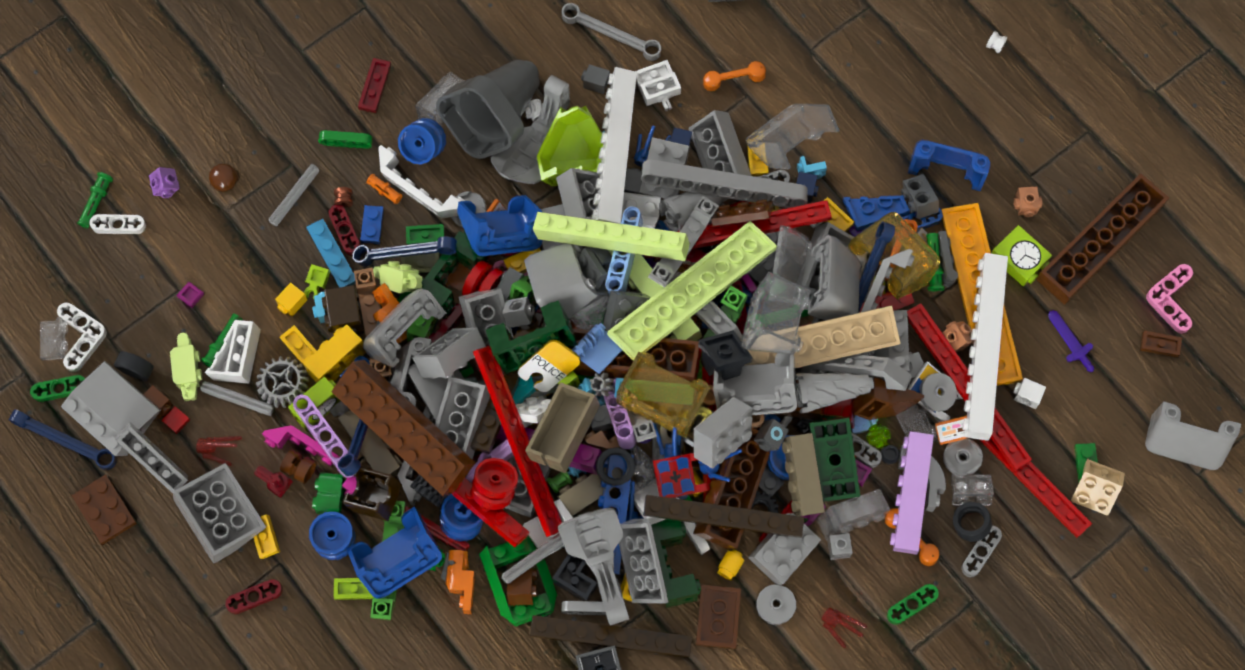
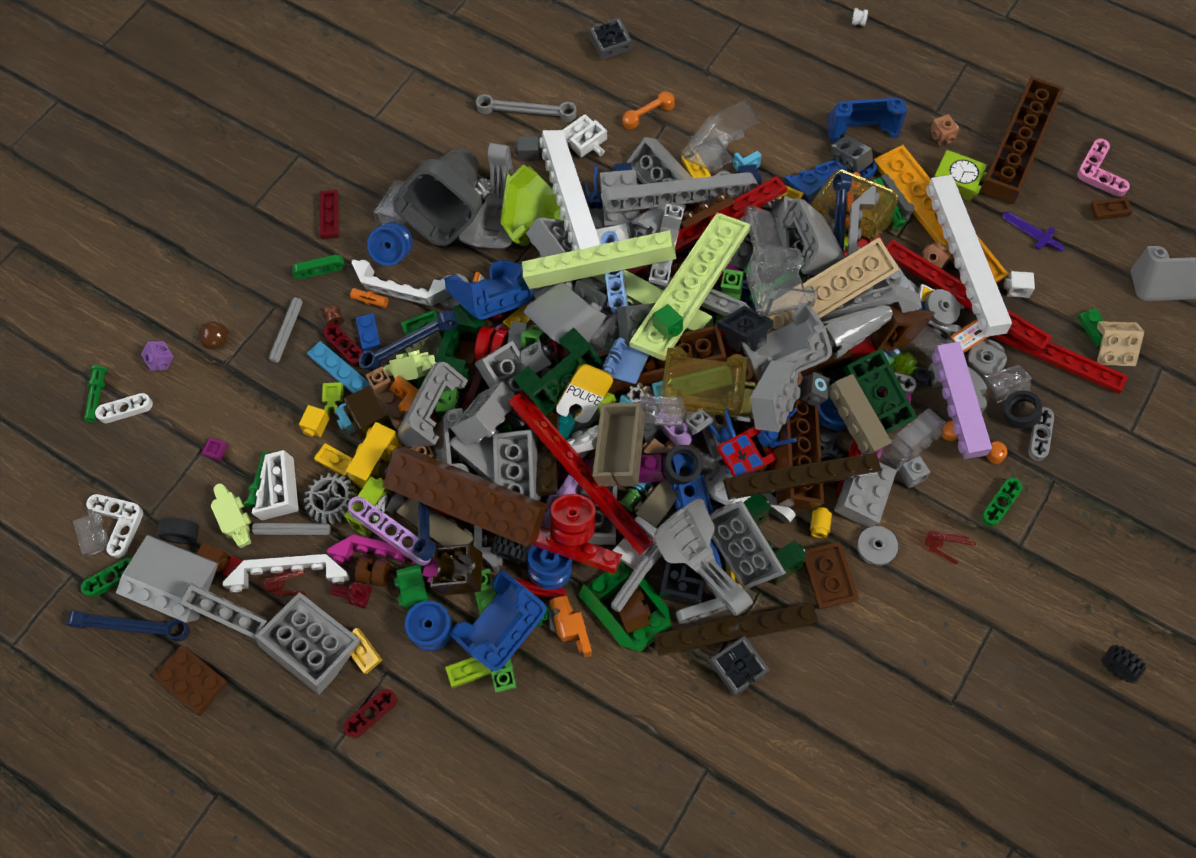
camera: 15 degrees left, 5 degrees down
(175, 432) = (239, 577): none -> white slope
(615, 410) = (663, 410): none -> clear bracket
(650, 325) = (668, 322): none -> green brick

